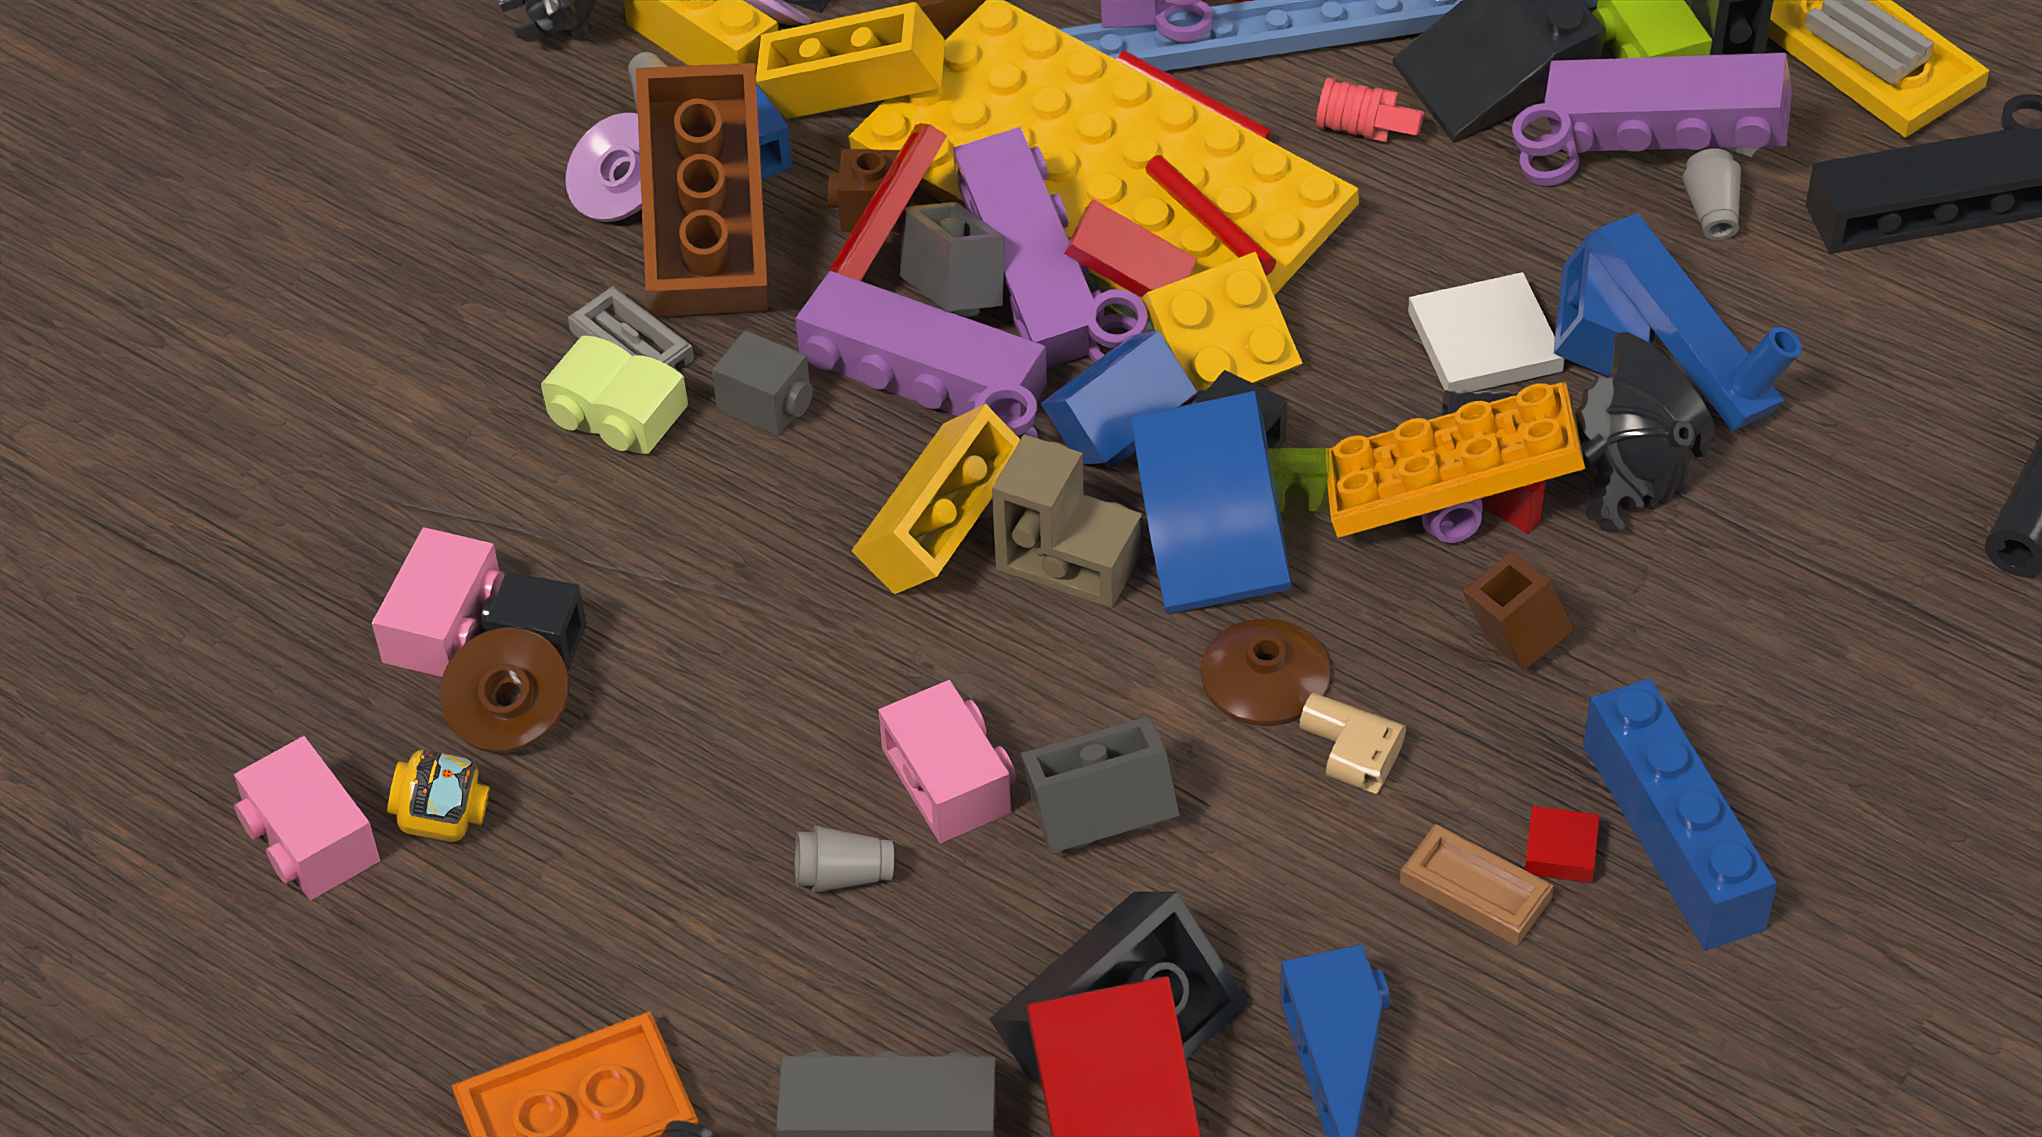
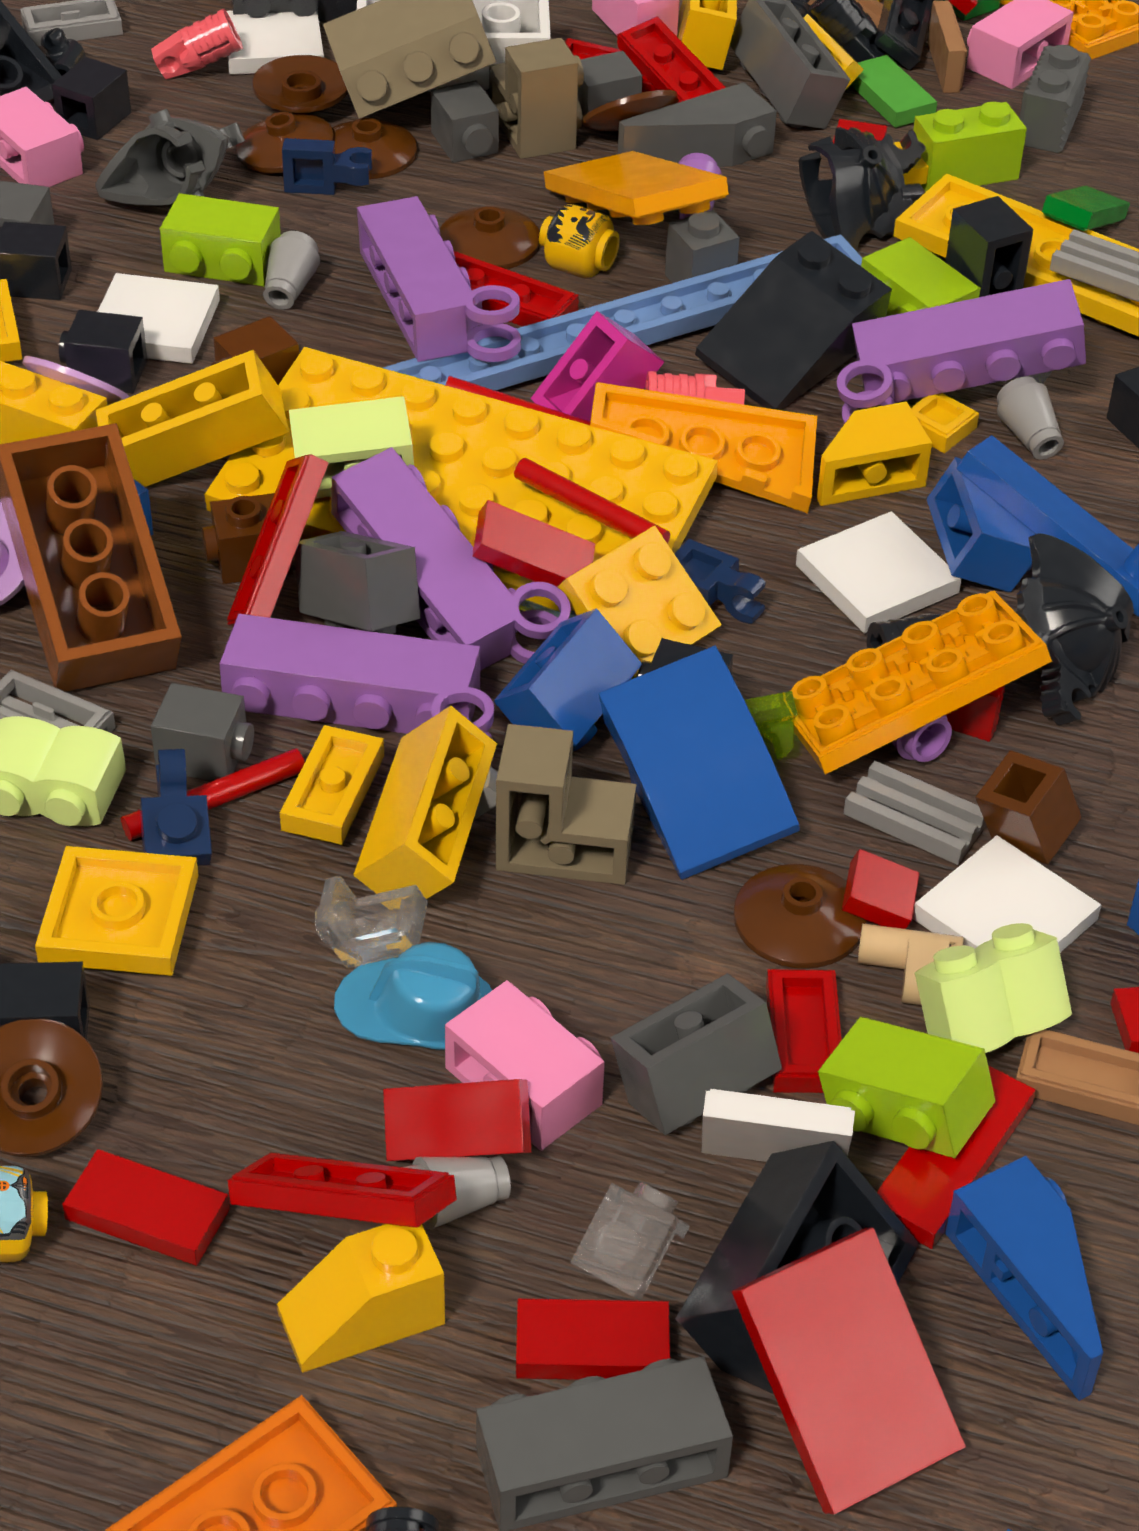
camera: 20 degrees left, 5 degrees down
(575, 818) = (146, 1207): none -> red tile
(634, 541) = (118, 910): none -> yellow plate
(711, 467) = (173, 820): none -> dark blue plate
(731, 937) = (365, 1296): none -> yellow slope
(737, 840) = (343, 1189): none -> red tile
(759, 444) = (233, 785): none -> red bar
(852, 602) = (369, 926): none -> clear bracket
(862, 800) = (457, 1120): none -> red tile
(867, 672) = (409, 995): none -> dark azure piece
(868, 456) = (332, 784): none -> yellow plate
(915, 1018) = (589, 1337): none -> red tile
(982, 938) = (629, 1237): none -> clear bracket
(988, 102) = (351, 434): none -> yellowish green brick
(1136, 867) = (763, 1125): none -> white tile
(1222, 784) = (804, 1025): none -> red tile
(1280, 68) = (598, 354): none -> dark pink slope
(1283, 857) = (909, 1085): none -> lime brick
(1314, 921) = (925, 1181): none -> red tile
(1315, 311) = (719, 578): none -> dark blue plate
(1347, 664) = (880, 890): none -> tile
(1400, 174) = (755, 446): none -> light orange wing
(1404, 784) = (995, 990): none -> yellowish green brick
(1425, 586) = (920, 806): none -> light grey tile
(1464, 709) = (1001, 889): none -> white tile
(1526, 208) = (875, 455): none -> yellow slope
(1620, 180) = (945, 420): none -> yellow tile

